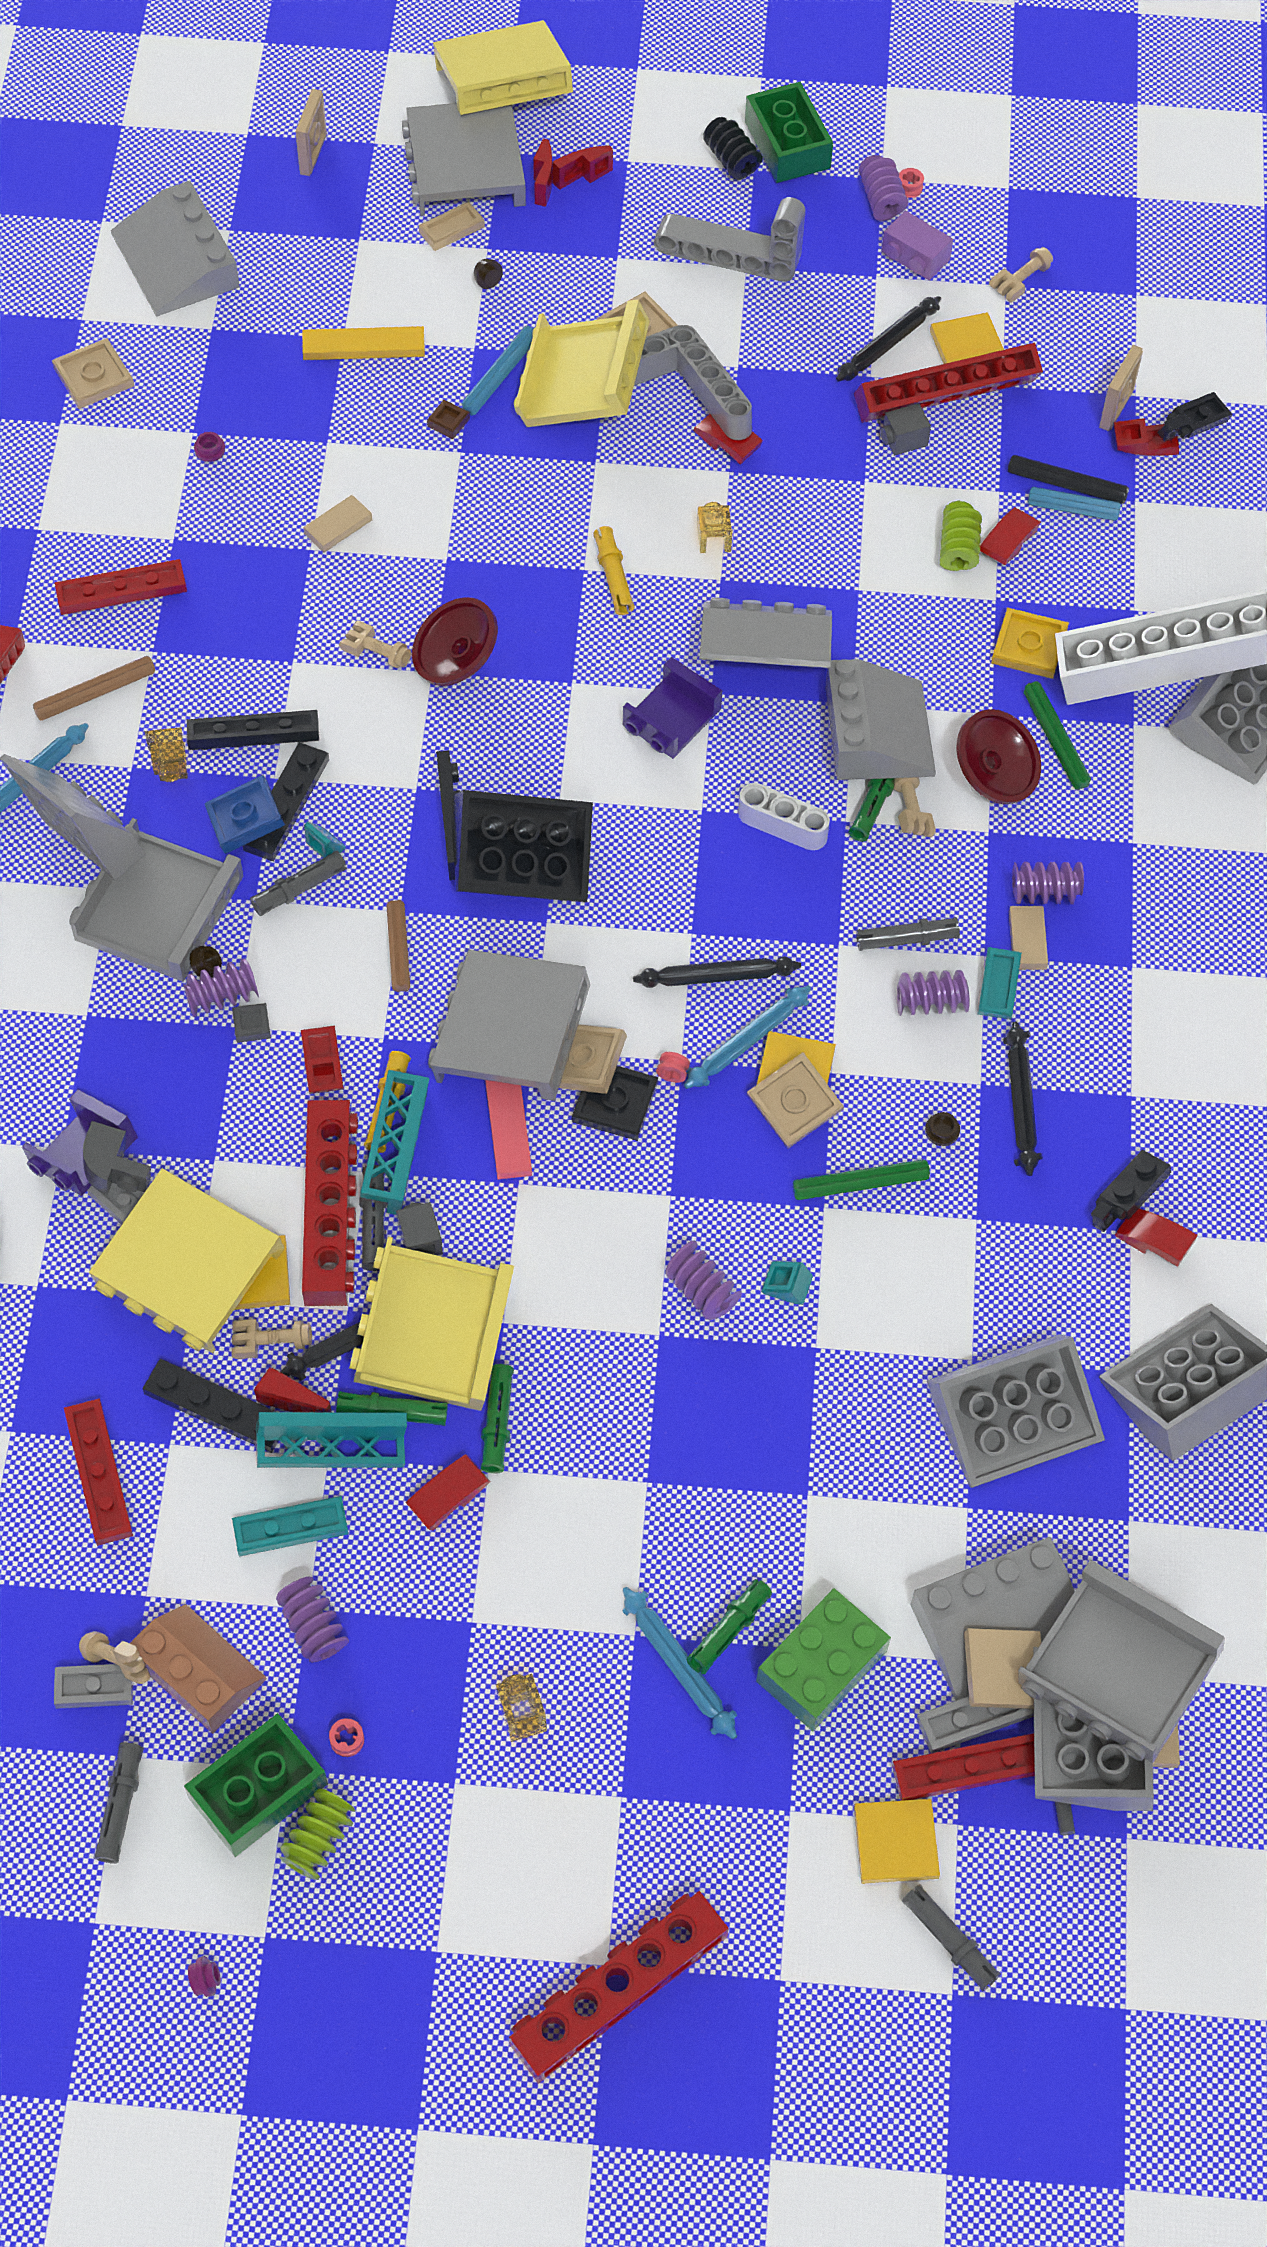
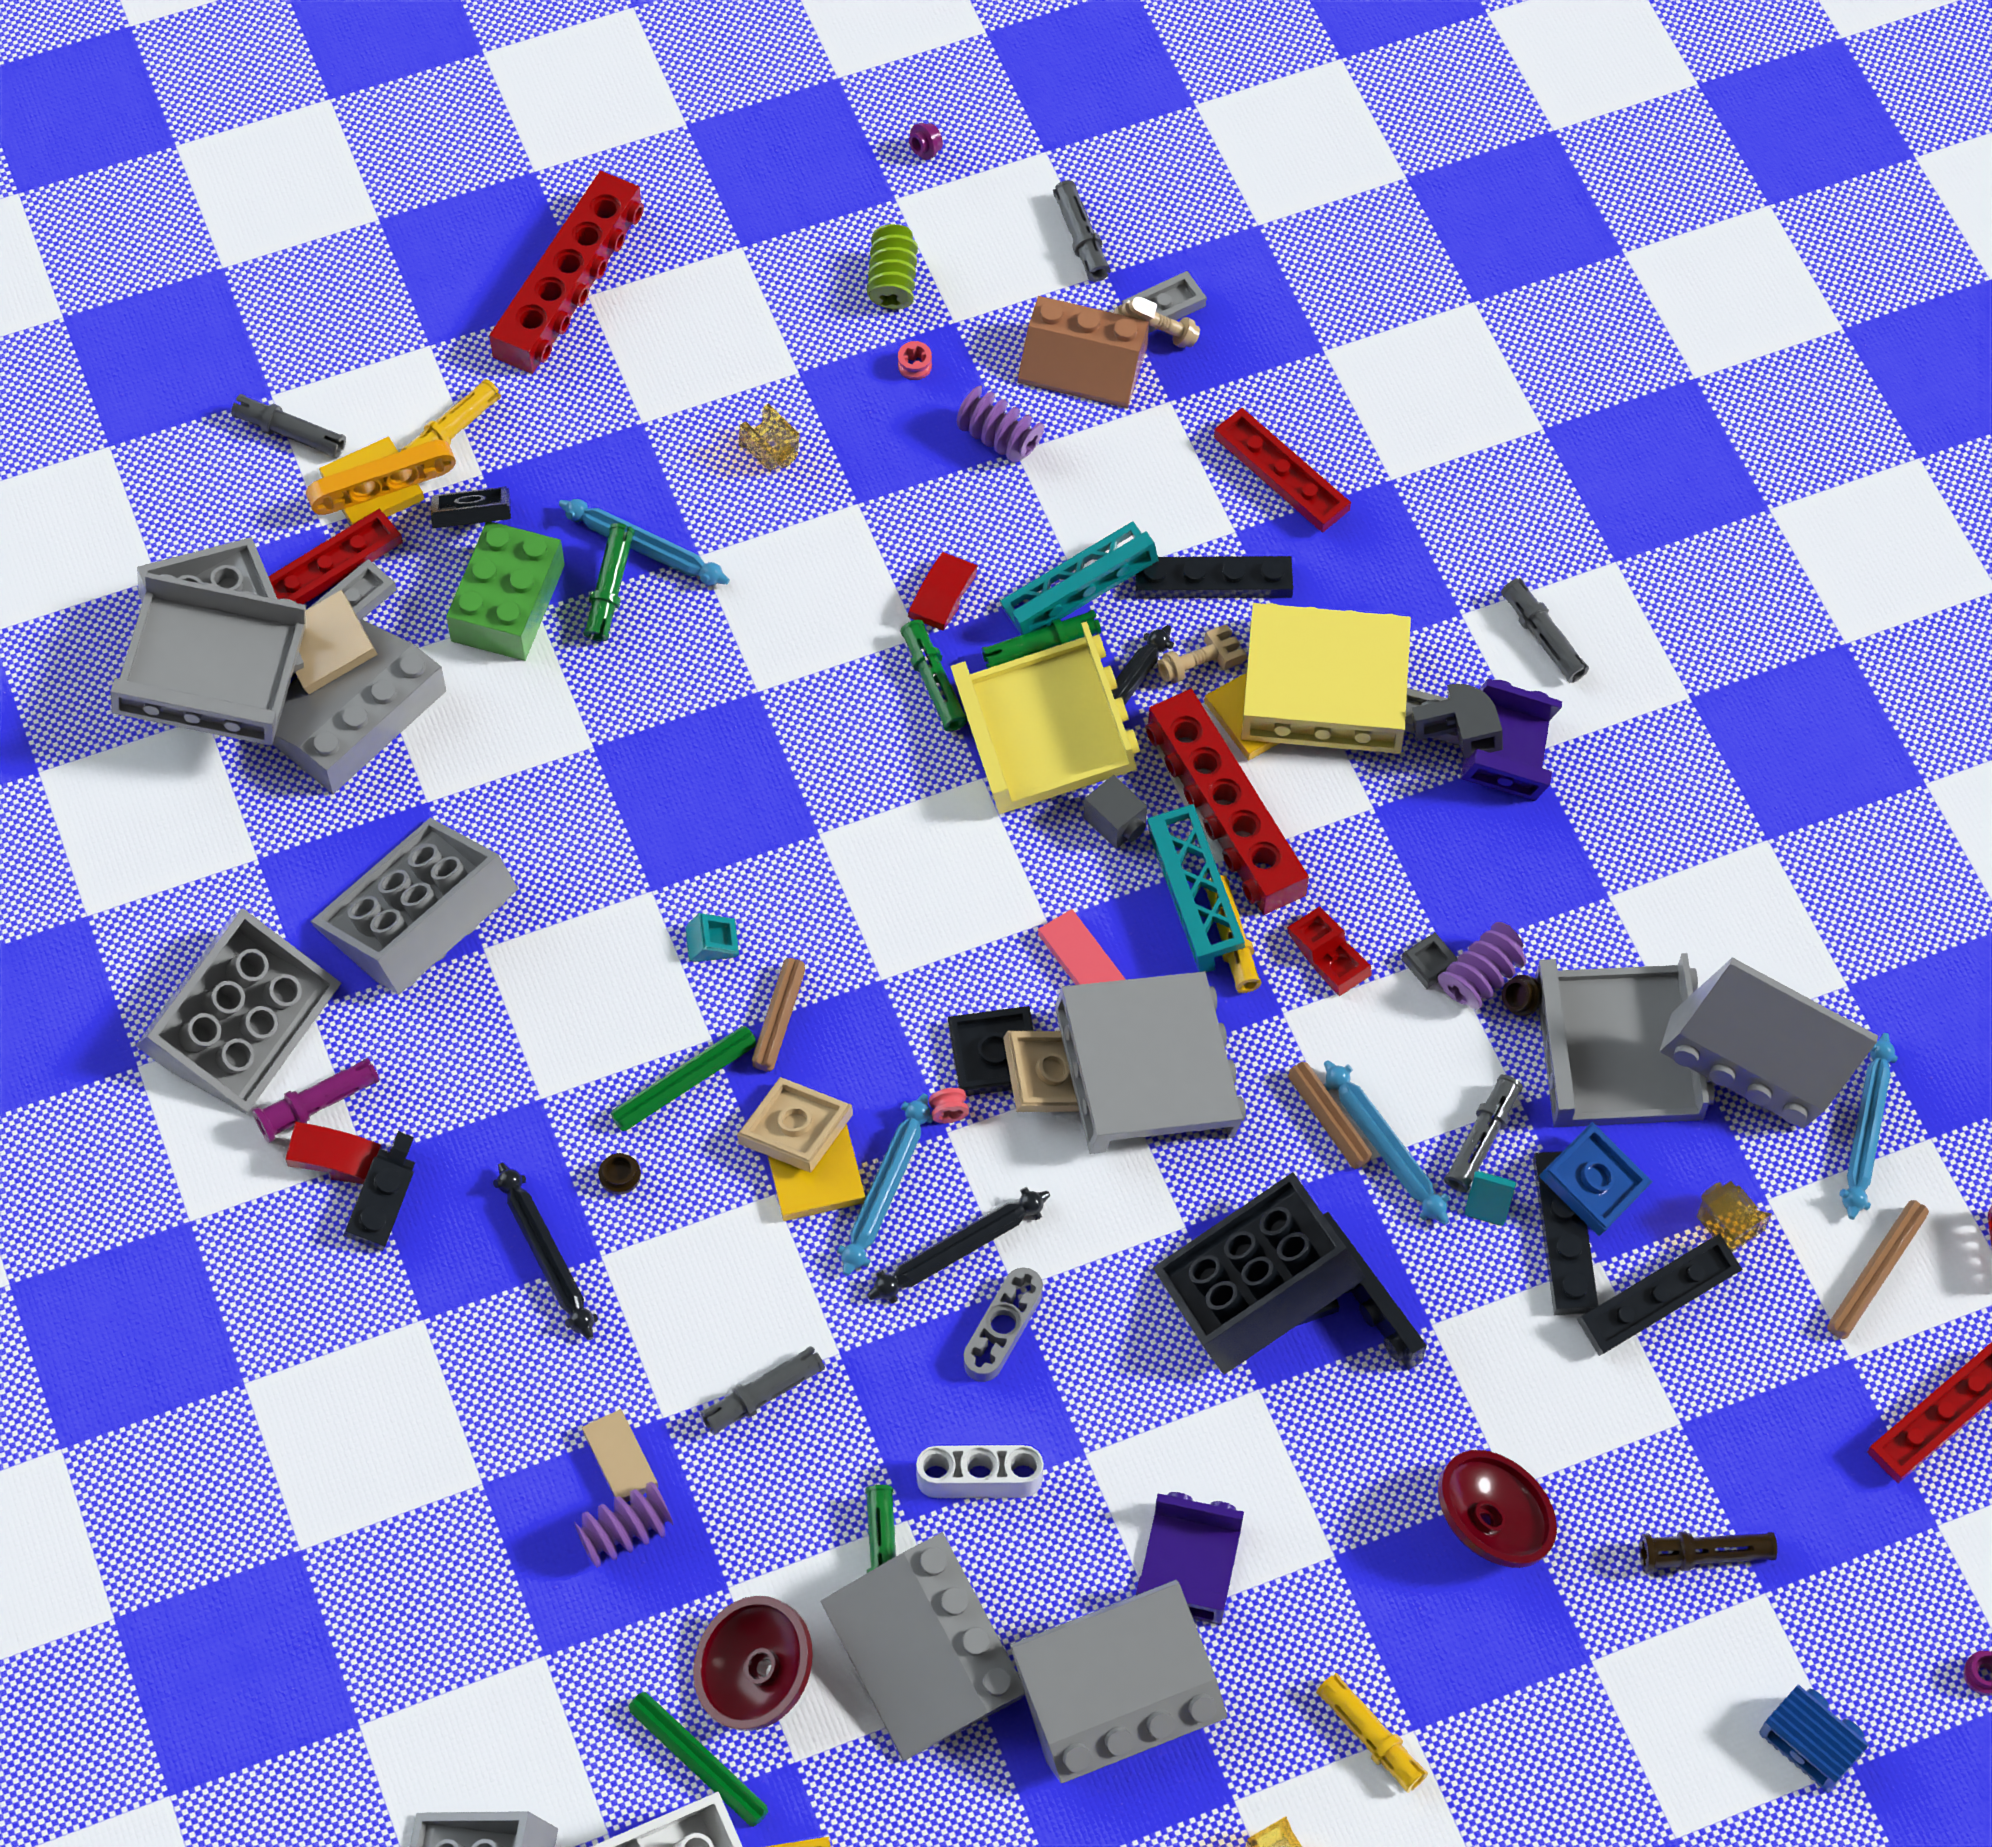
camera: 155 degrees right, 0 degrees up
(256, 1785) = (967, 278): green brick -> none
(286, 1394) = (1140, 606): red slope -> none
(290, 1526) = (1074, 506): teal tile -> none
(337, 523) = (1754, 1639): tan tile -> none
(342, 453) = (1814, 1737): none -> blue brick
(345, 580) = (1685, 1545): none -> dark brown pin
(362, 638) = (1558, 1477): tan hinge -> none
(369, 1250) = (1164, 799): dark grey pin -> none
(370, 910) = (1386, 1142): none -> dark azure wheel
(700, 1283) = (797, 887): medium lavender piece -> none
(708, 921) = (979, 1344): none -> light grey beam
(764, 1196) = (778, 1014): none -> medium nougat axle
(821, 1751) = (470, 507): none -> black tile
(841, 1850) = (459, 415): none -> yellow pin
(890, 1821) = (343, 488): none -> light orange beam
(912, 818) = (823, 1550): tan hinge -> none
(932, 992) = (698, 1319): medium lavender piece -> none
(999, 983) = (628, 1375): teal tile -> none
(1173, 1282) = (301, 1105): none -> magenta pin

